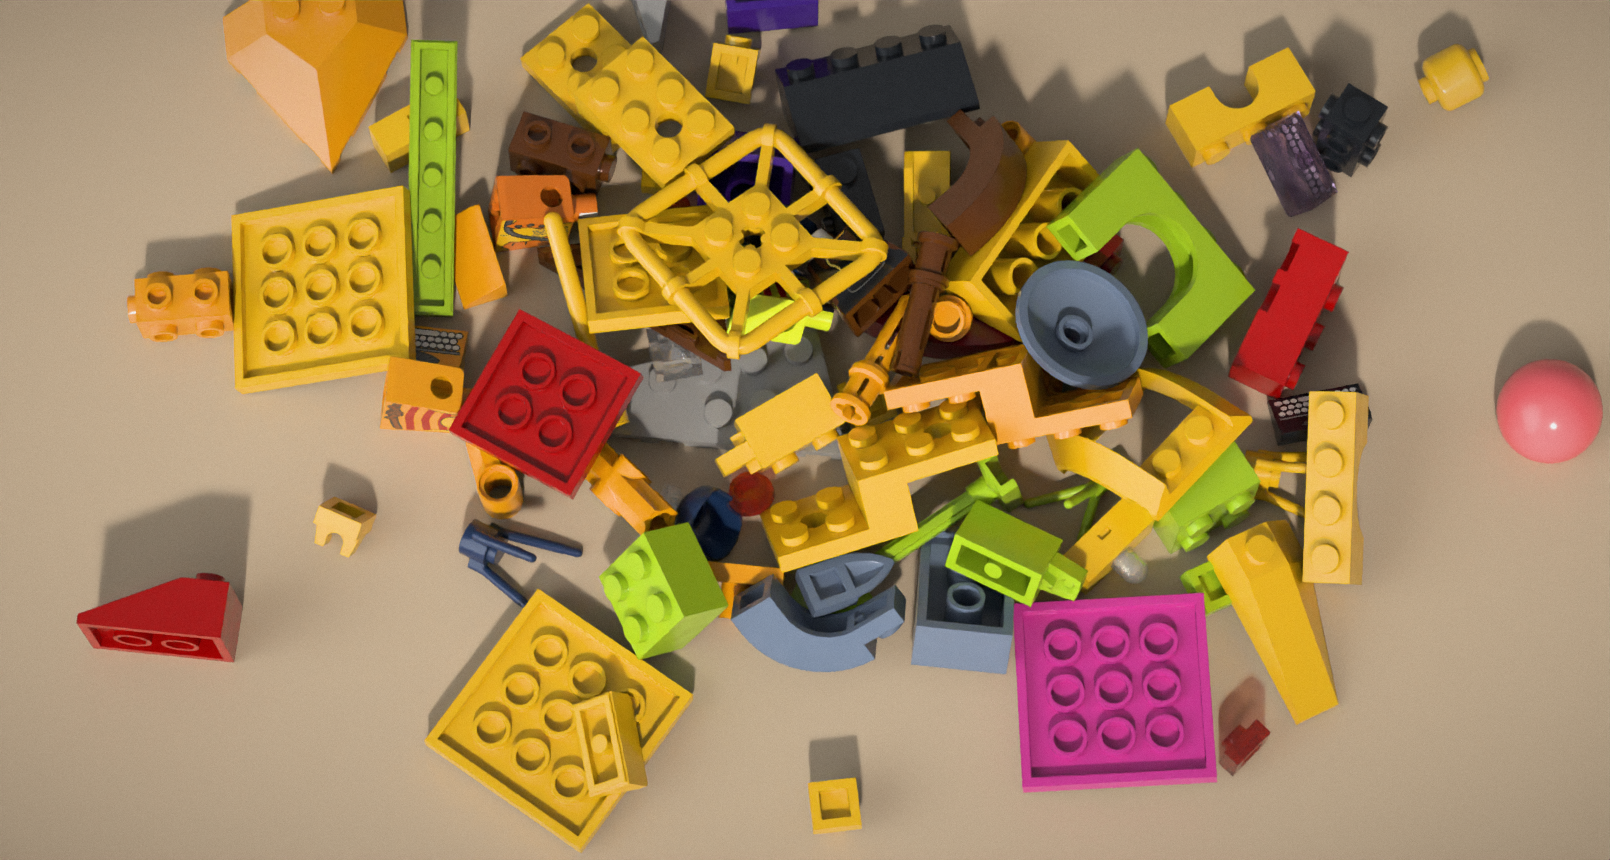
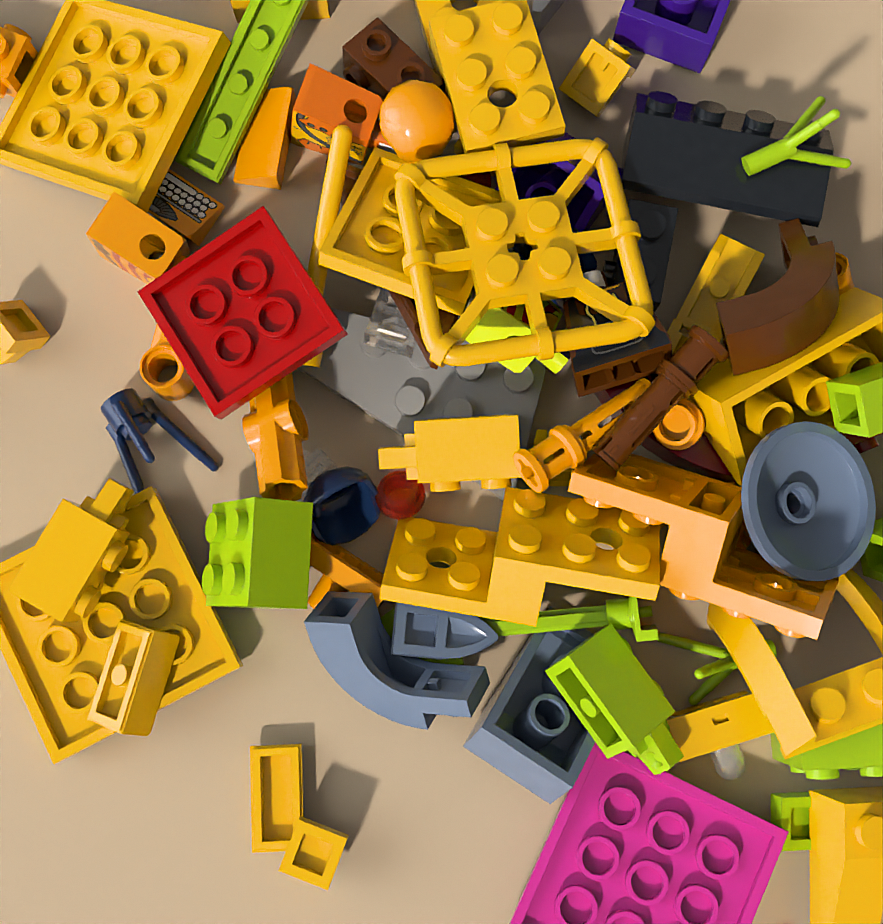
camera: 30 degrees right, 10 degrees up
(510, 667) = (75, 554): none -> yellow hinge
(606, 180) = (417, 120): none -> light orange hair
(777, 785) = (275, 795): none -> yellow tile
(925, 42) = (786, 147): none -> lime plant

